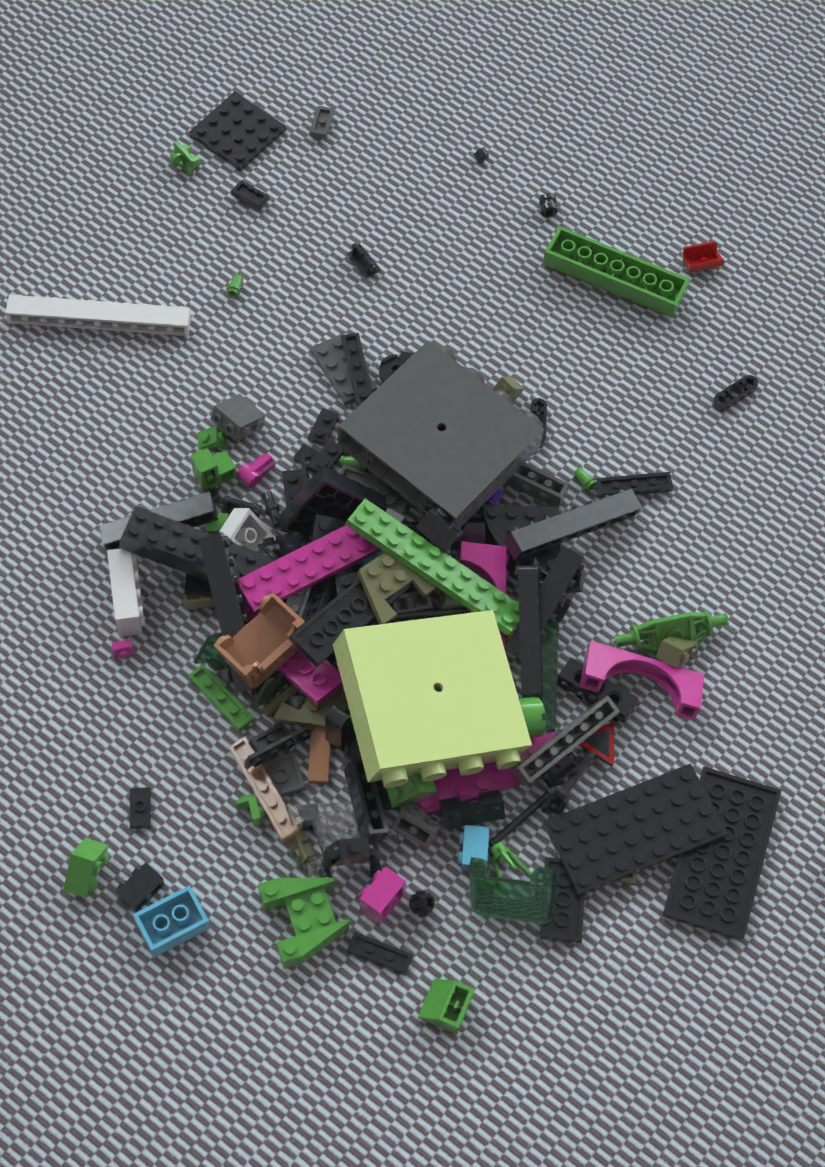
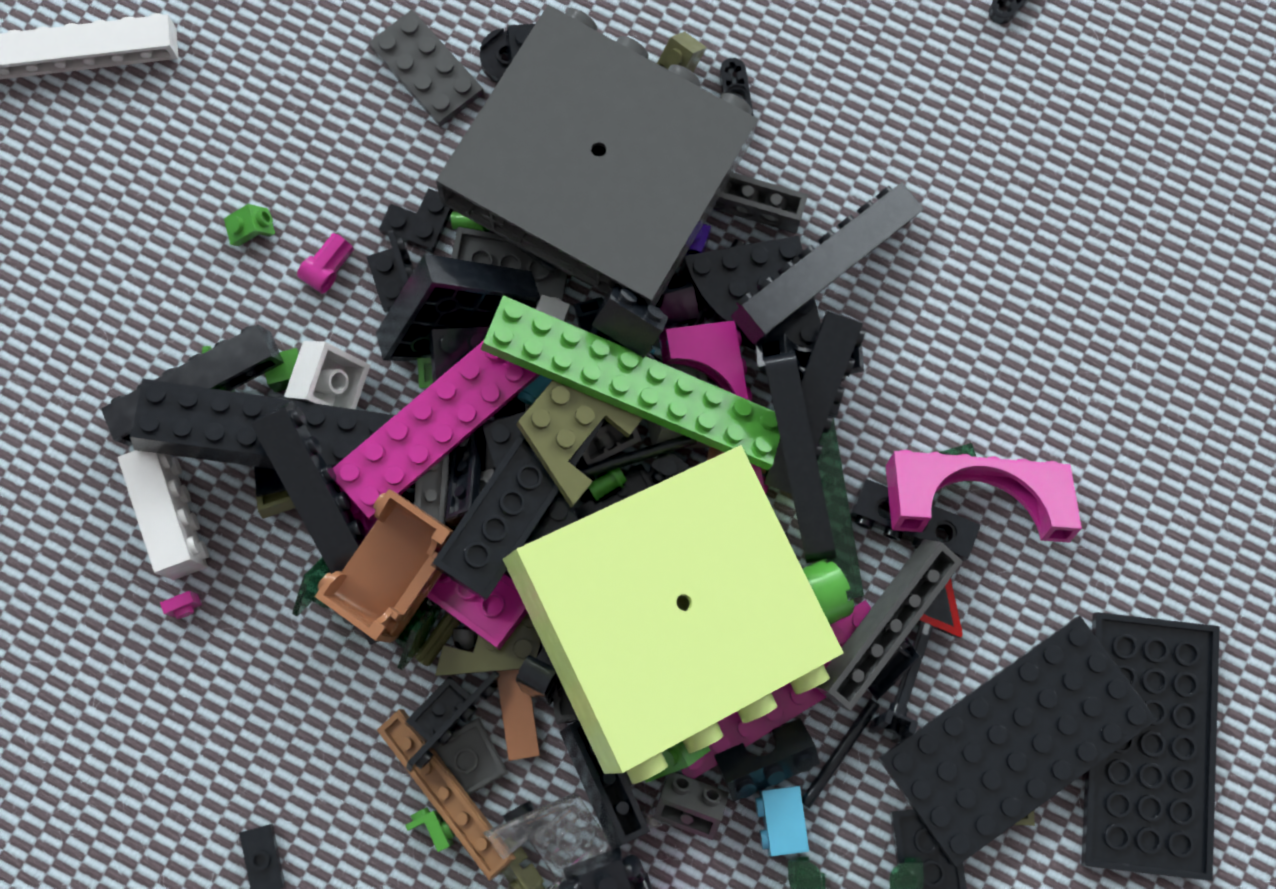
camera: 10 degrees left, 15 degrees up
(212, 470) = (259, 277): bright green brick -> none
(215, 493) = (267, 311): black plate -> none
(221, 698) = (349, 650): bright green tile -> none
(231, 503) = (316, 329): black hinge -> none
(237, 417) = (279, 183): dark grey brick -> none
(272, 508) = (362, 321): black pin -> none
(286, 543) = (398, 382): black bracket -> none
(323, 427) = (414, 169): black plate -> none
(356, 367) = (447, 66): black tile -> none
(501, 854) = (824, 819): bright green plant -> none
(587, 481) = (825, 177): bright green pin -> none
(638, 483) = (906, 168): black plate -> none
(676, 626) = (1009, 408): bright green plate -> none
(677, 651) = (1023, 436): olive slope -> none

